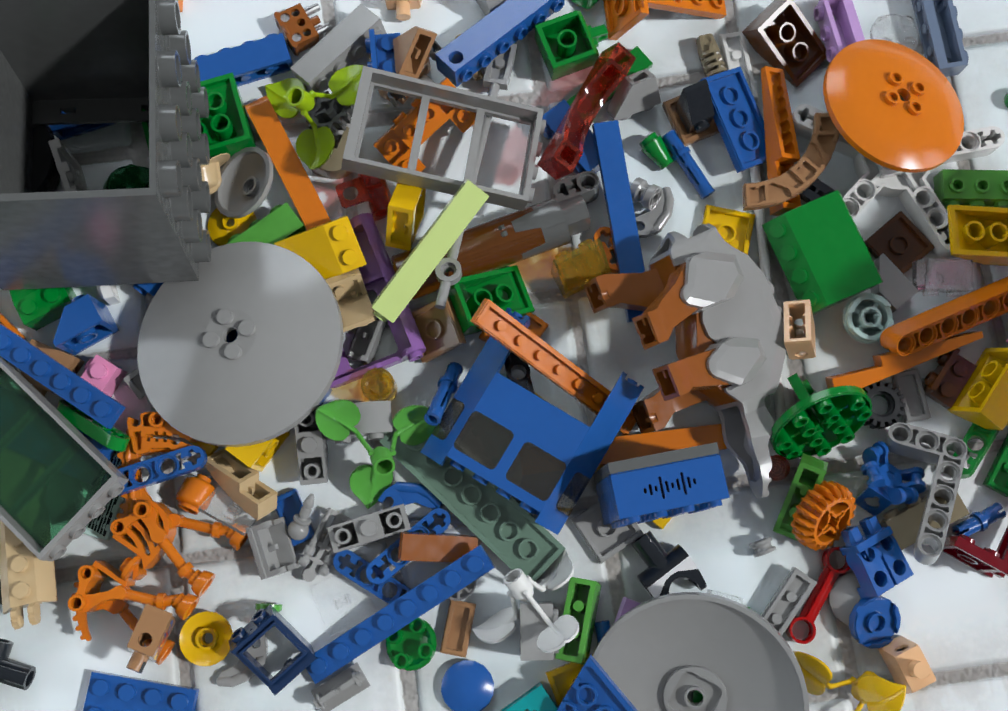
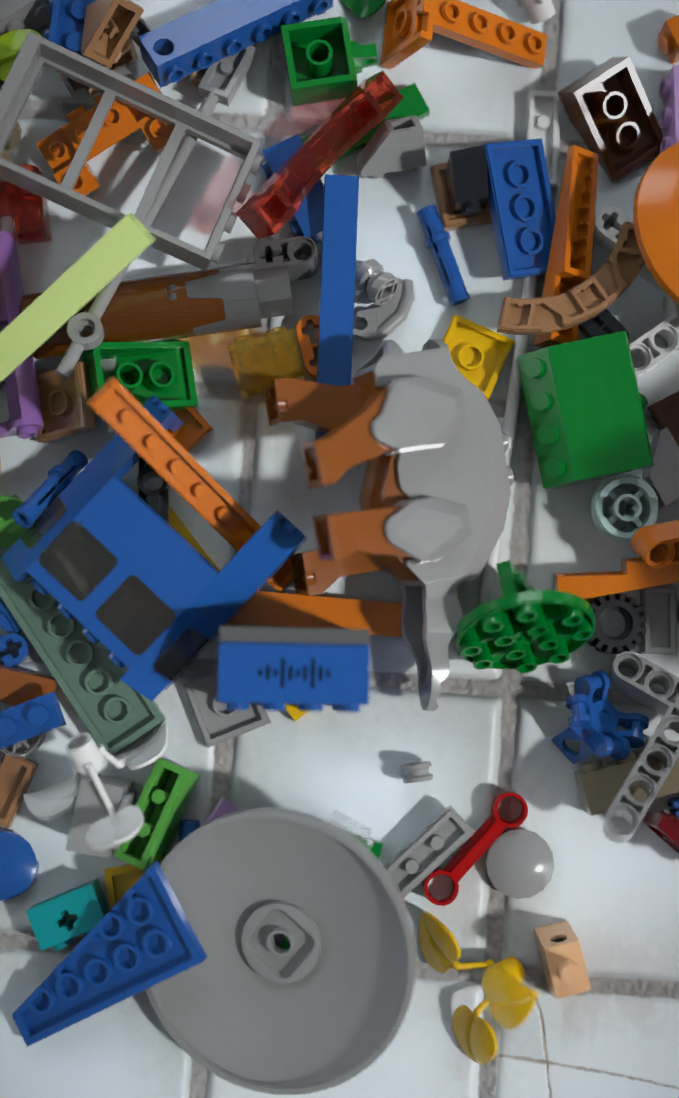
camera: 10 degrees right, 5 degrees up
(404, 216) = (50, 243): yellow window -> none
(656, 150) = (405, 227): green cone -> none
(664, 566) = (285, 769): black connector -> none
(710, 55) = (507, 114): dark tan hinge -> none
(780, 468) = (461, 676): clear red tile -> none
(799, 339) = (527, 517): light nougat torso -> none
(808, 473) = (481, 718): bright green slope -> none
(823, 515) = (500, 749): orange gear -> none
(874, 557) = (554, 817): blue hips -> none
(874, 621) = (536, 896): blue tile -> none

